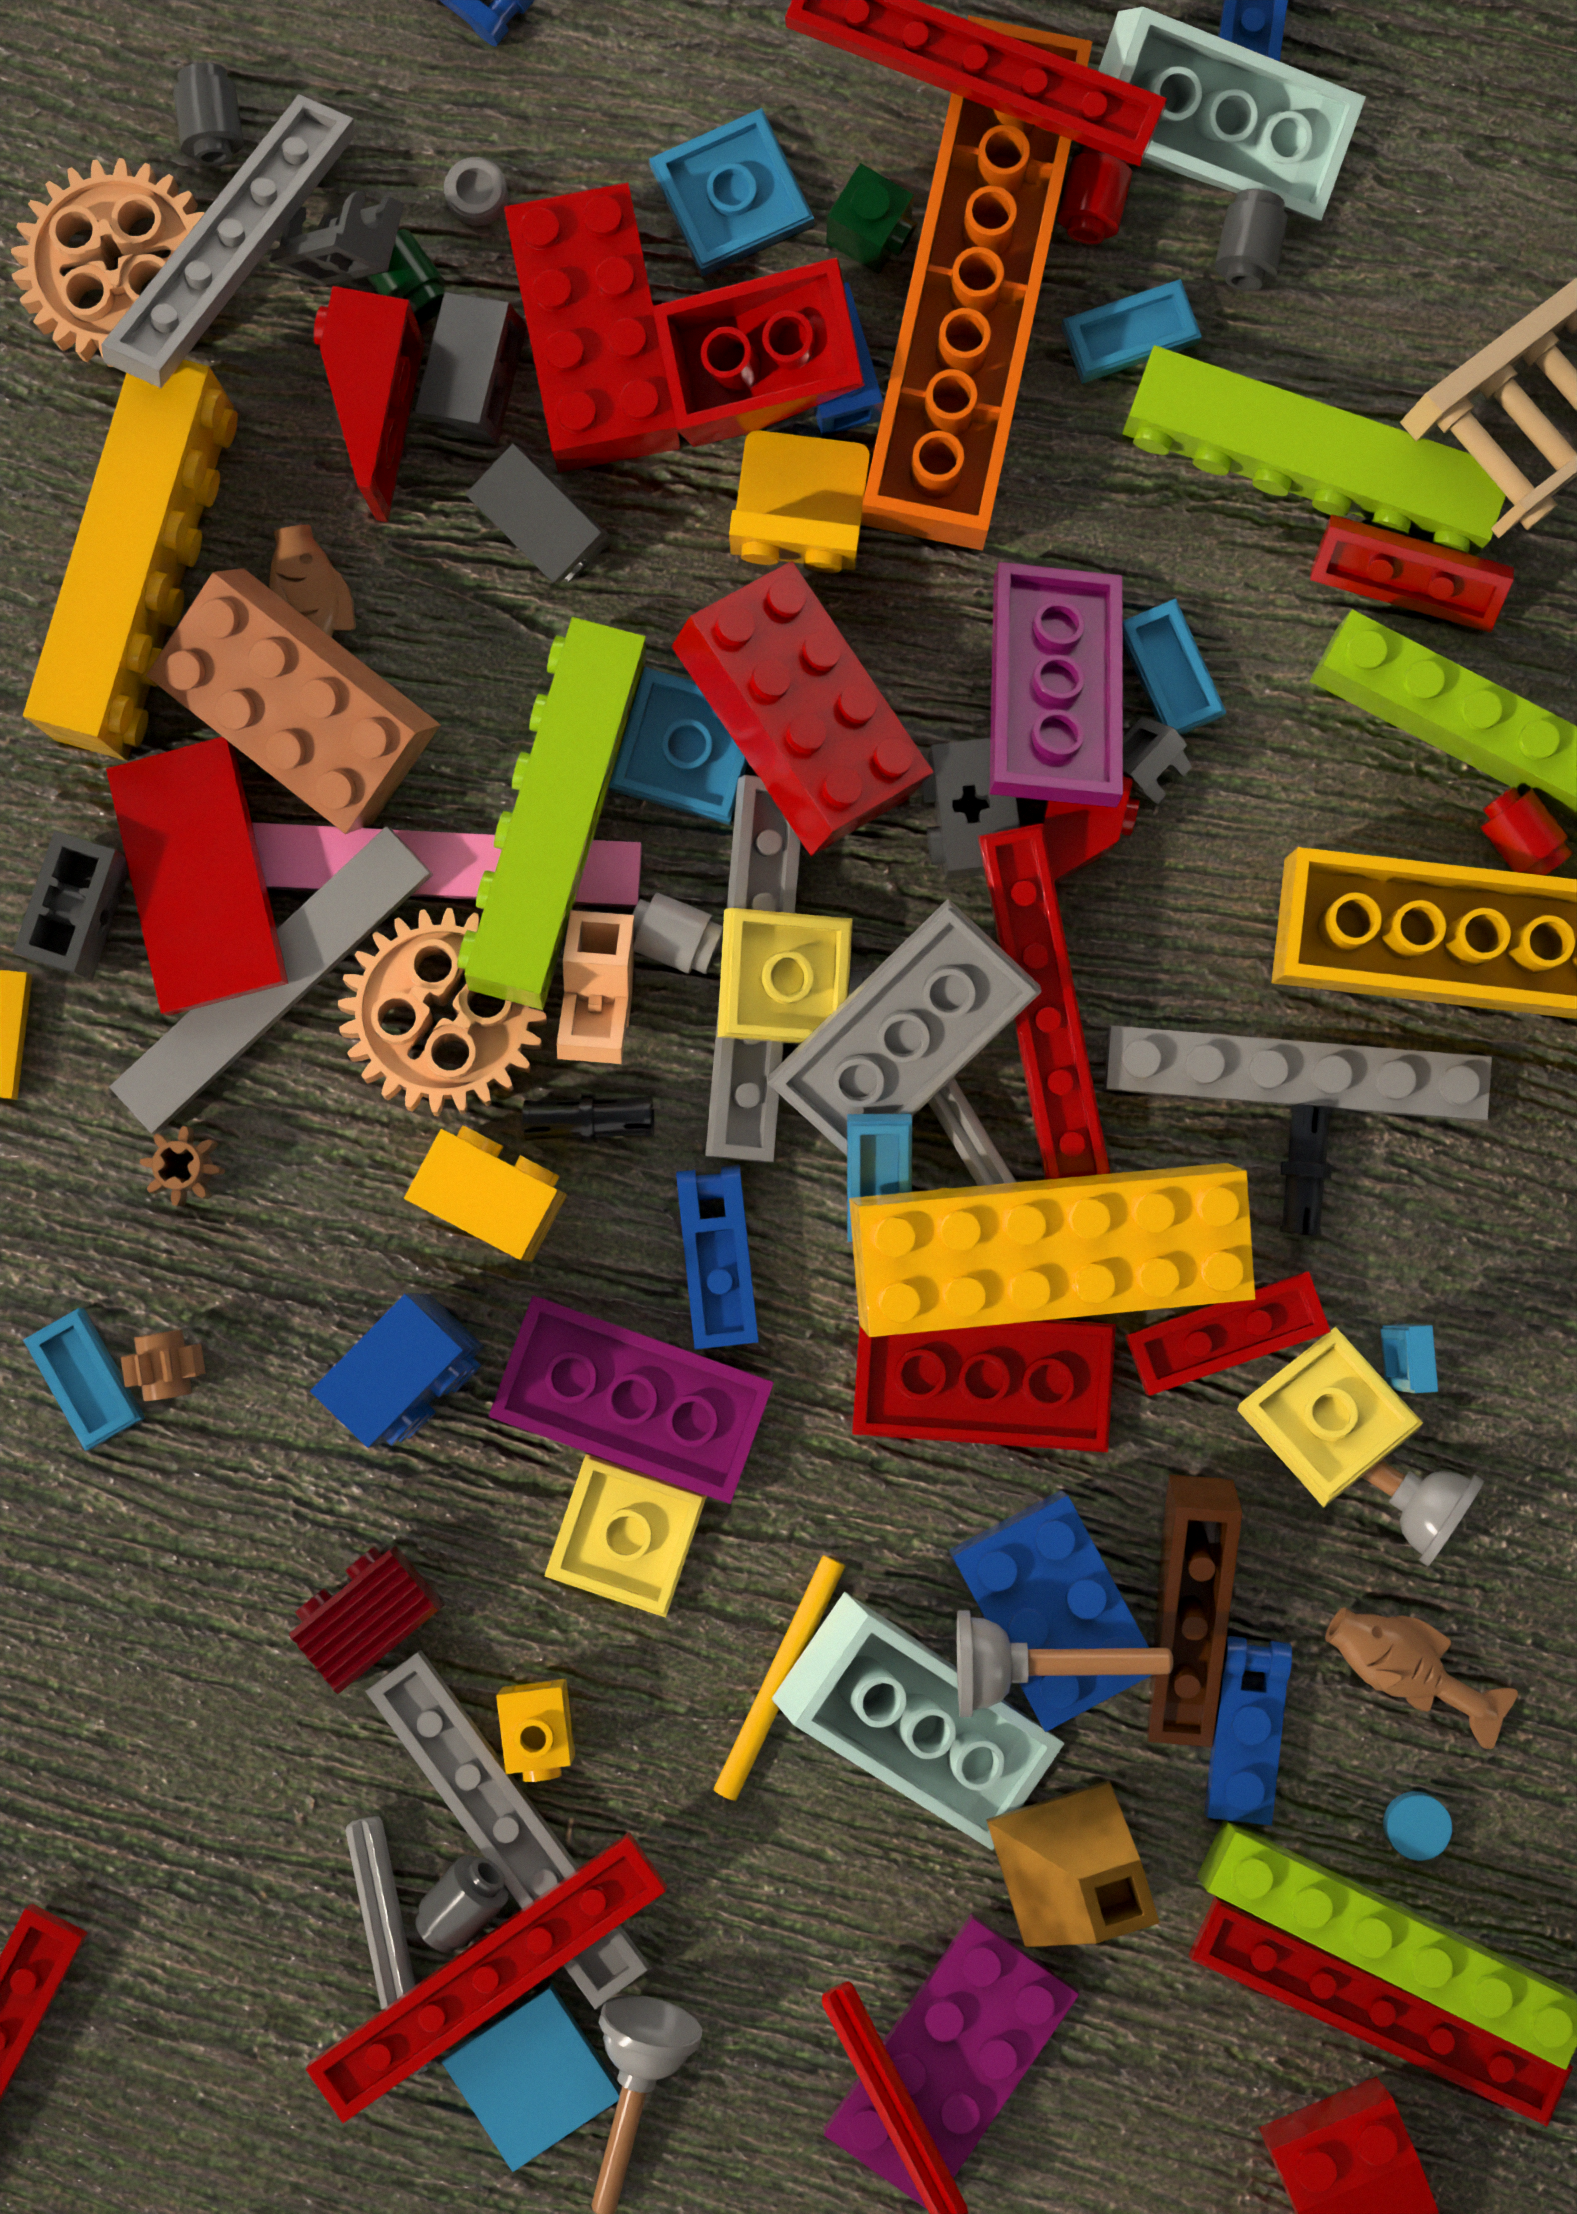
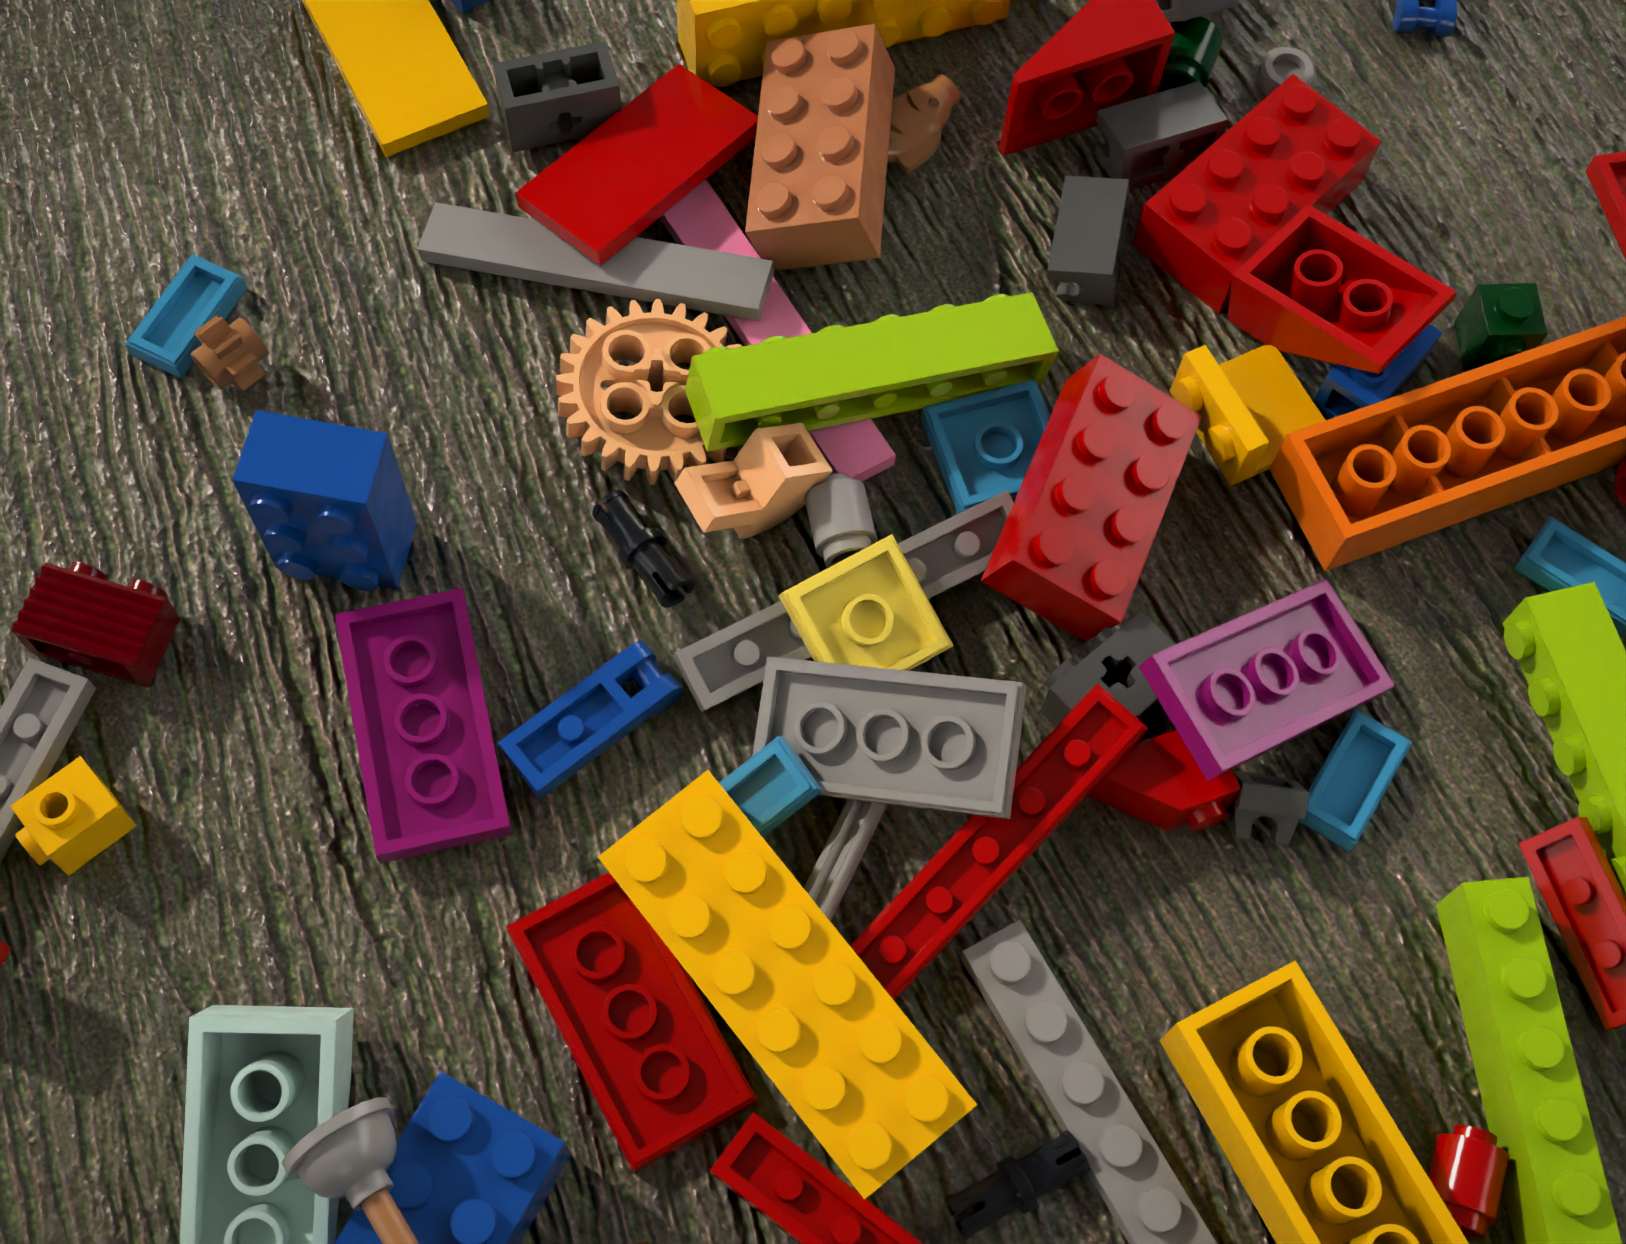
camera: 50 degrees right, 20 degrees down
(164, 1165) = (404, 281): medium nougat gear -> none
(486, 1195) = (525, 495): yellow brick -> none
(625, 1535) = (296, 795): light yellow tile -> none
(731, 192) = (1438, 229): dark azure tile -> none
(764, 1709) = (176, 1013): yellow bar -> none

